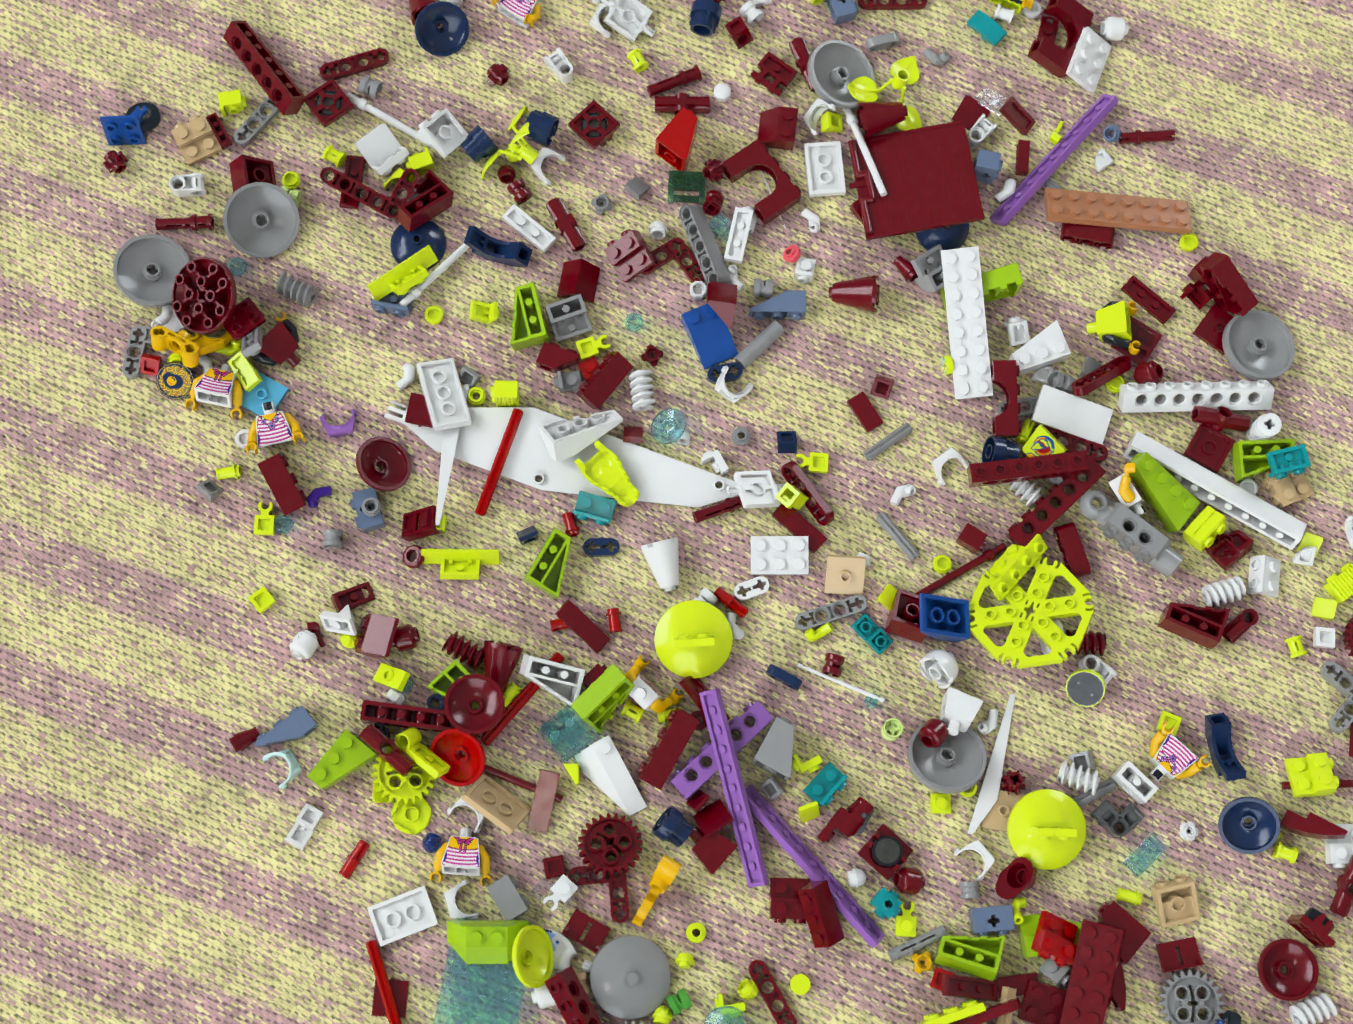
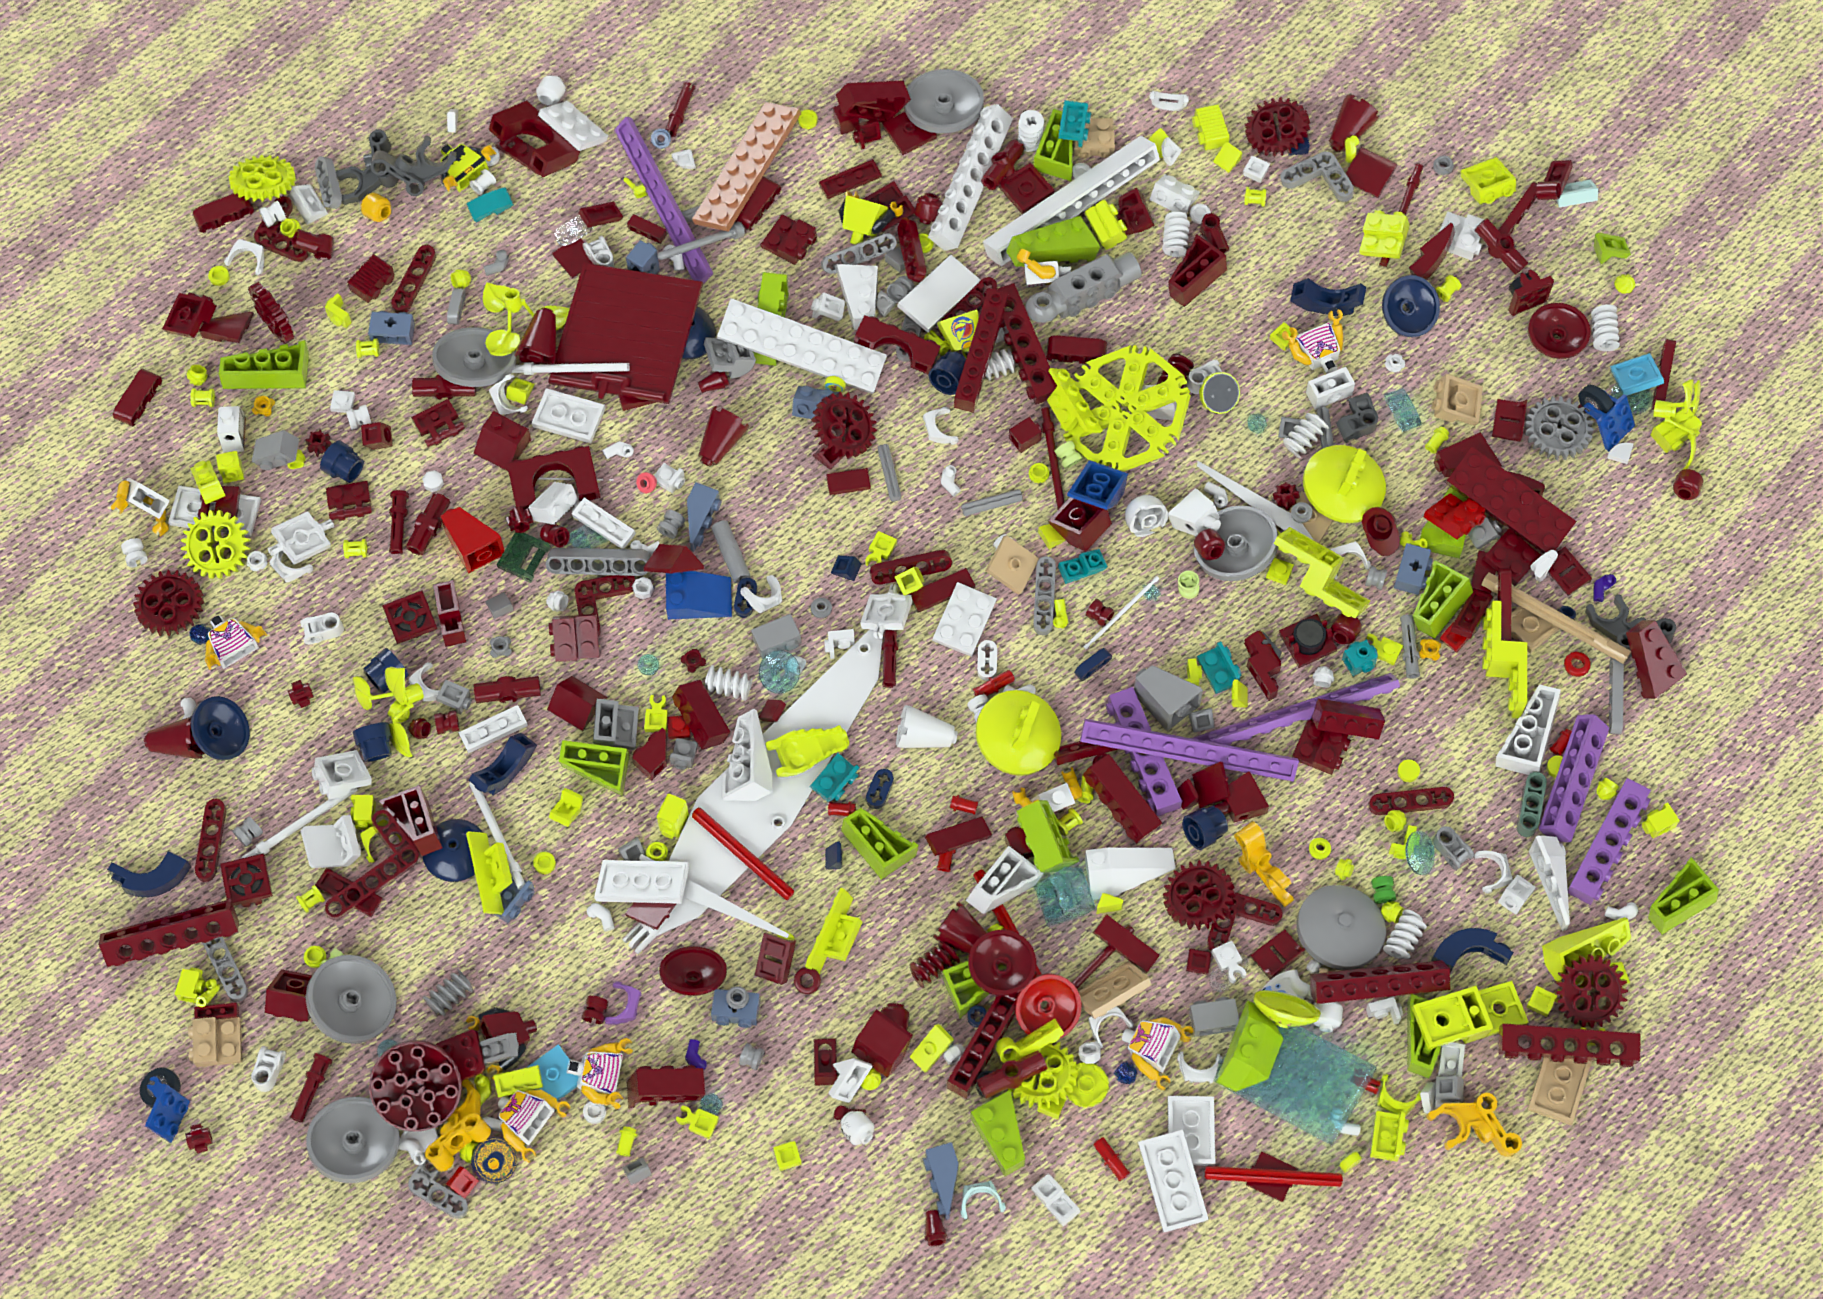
camera: 60 degrees left, 10 degrees down
(230, 118) = (208, 995): none -> neon yellow arm
(310, 45) = (153, 883): none -> dark blue arch
(325, 404) = (595, 1009): none -> dark red wheel
(351, 917) = (1173, 1181): none -> white plate
(438, 806) = (1089, 1052): none -> white tile
(542, 187) = (454, 696): none -> light grey bracket
(612, 153) = (449, 613): none -> dark red slope
(681, 34) = (348, 495): none -> dark red plate
(699, 411) = (776, 635): none -> light grey brick
(738, 189) = (553, 503): none -> white brick
(906, 370) = (844, 425): none -> dark red gear
(909, 35) = (460, 279): none -> neon yellow plate
(924, 356) = (806, 400): none -> sand blue bracket
(955, 838) = (1320, 576): none -> neon yellow bracket
(968, 581) = (1068, 454): none -> yellowish green wheel
(1001, 807) = (1301, 518): none -> light grey plate
(1052, 227) = (735, 232): none -> light grey piece
(1067, 274) = (790, 239): none -> dark red plate
(1072, 731) = (1256, 423): none -> clear light blue plate
(1077, 337) = (857, 249): none -> light grey beam
(1257, 603) = (1197, 212): none -> white tile

